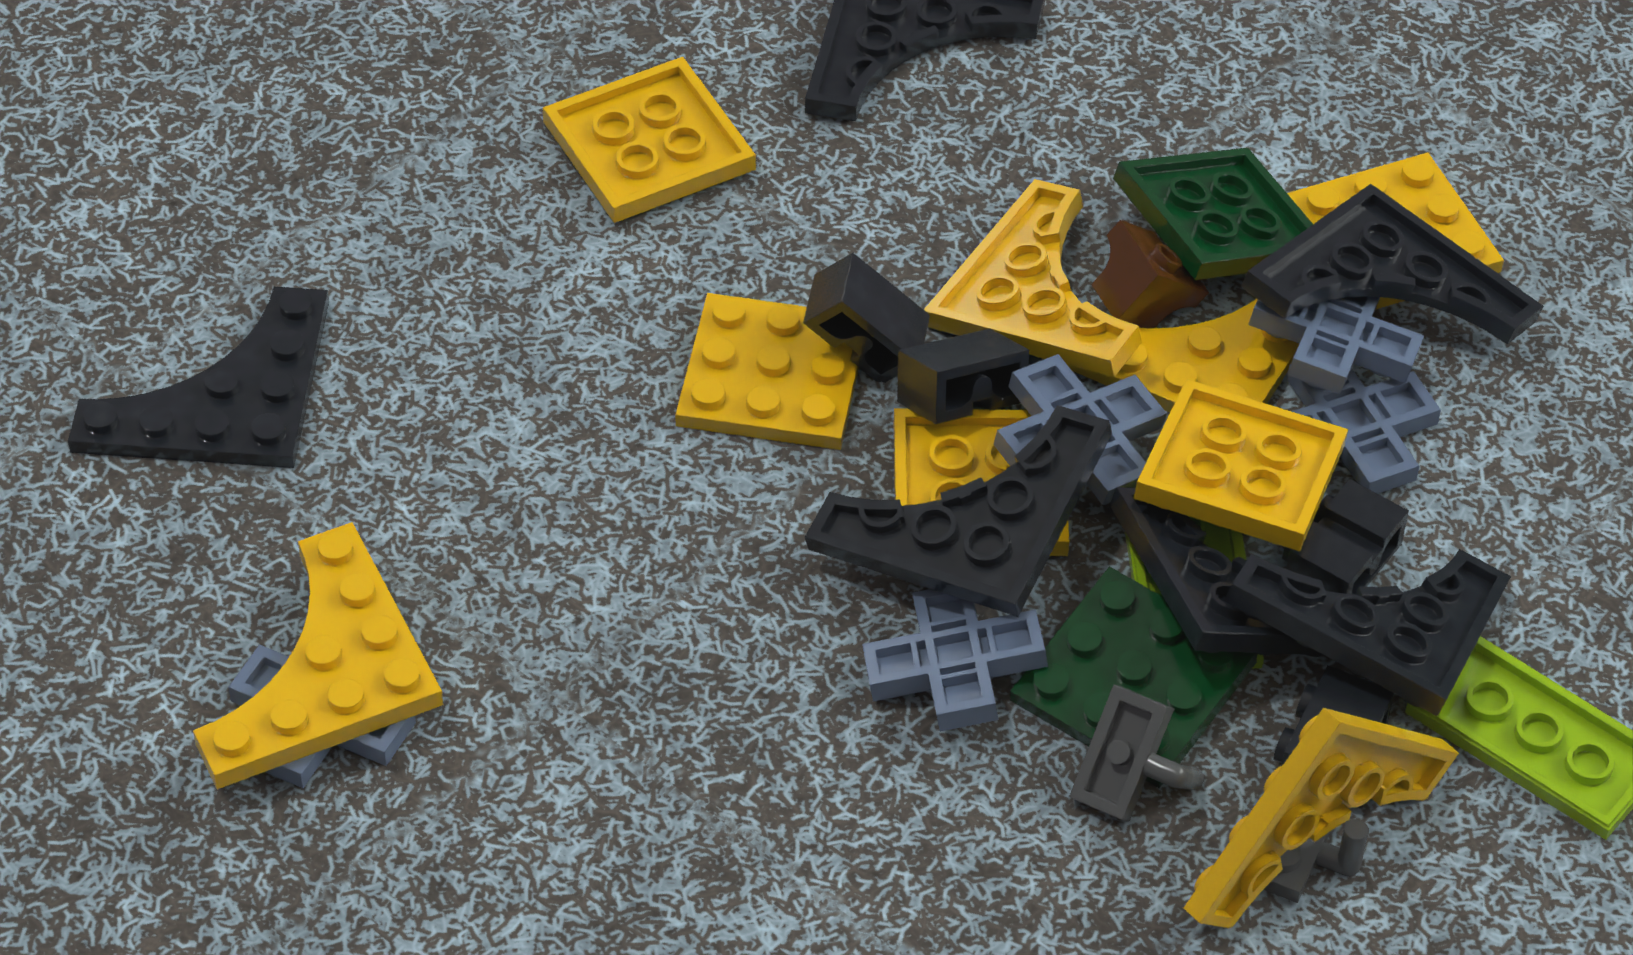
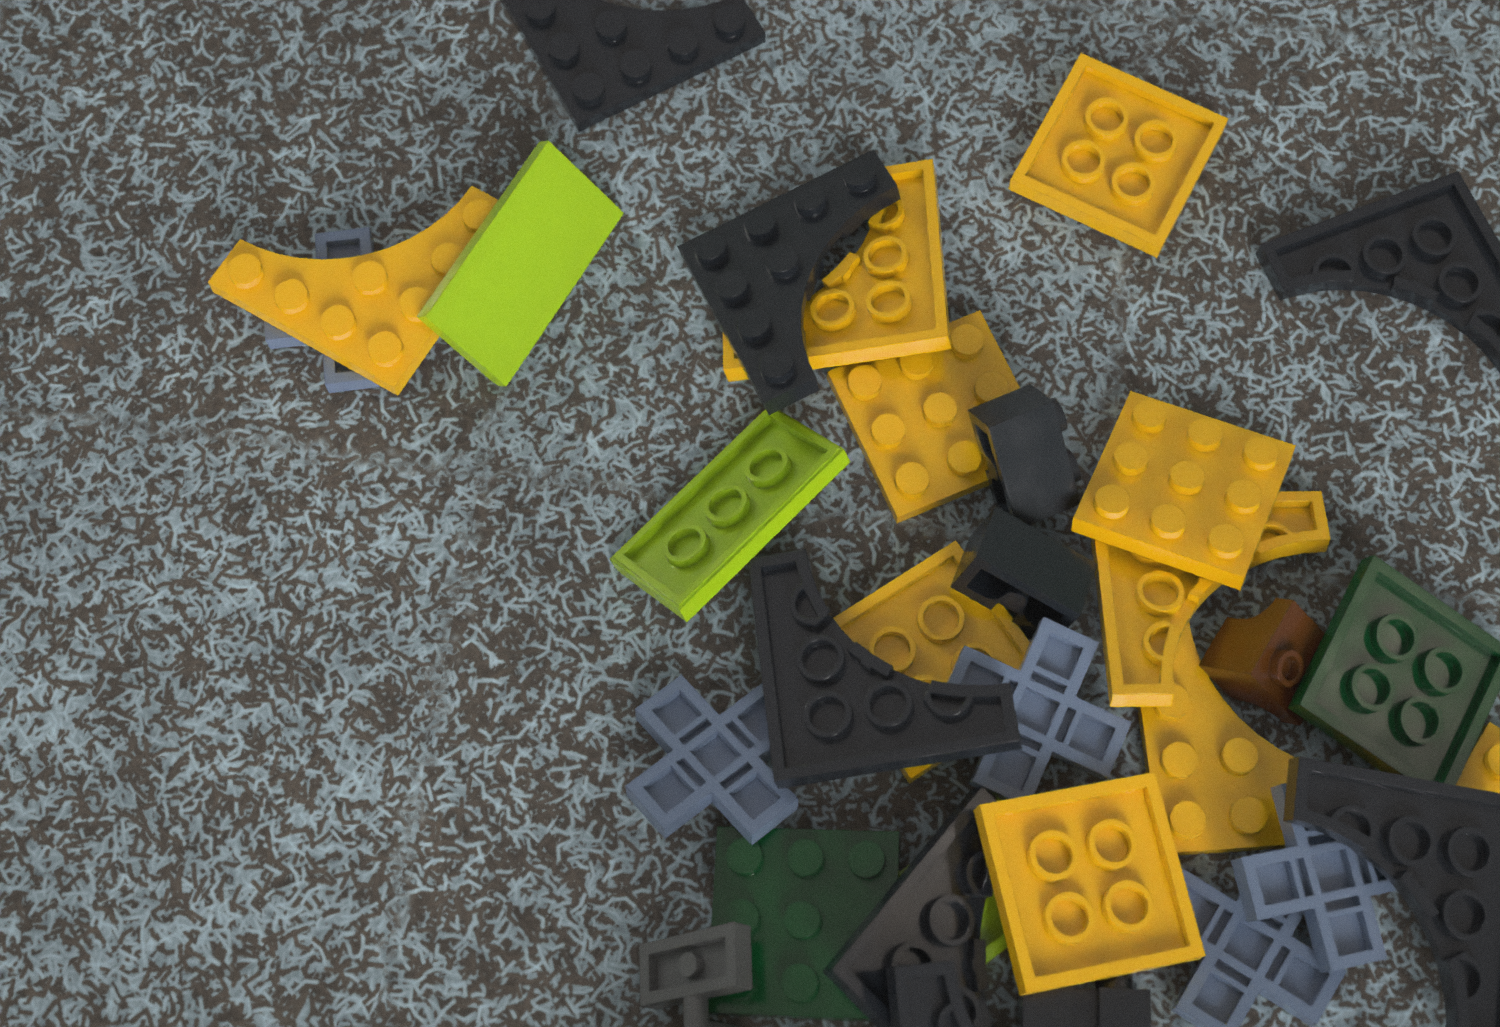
camera: 60 degrees right, 20 degrees up
(401, 551) = (521, 264): none -> lime tile
(555, 402) = (766, 267): none -> black plate
(645, 343) = (888, 293): none -> yellow plate
(748, 536) = (729, 512): none -> lime tile
(969, 249) = (1184, 489): none -> yellow plate

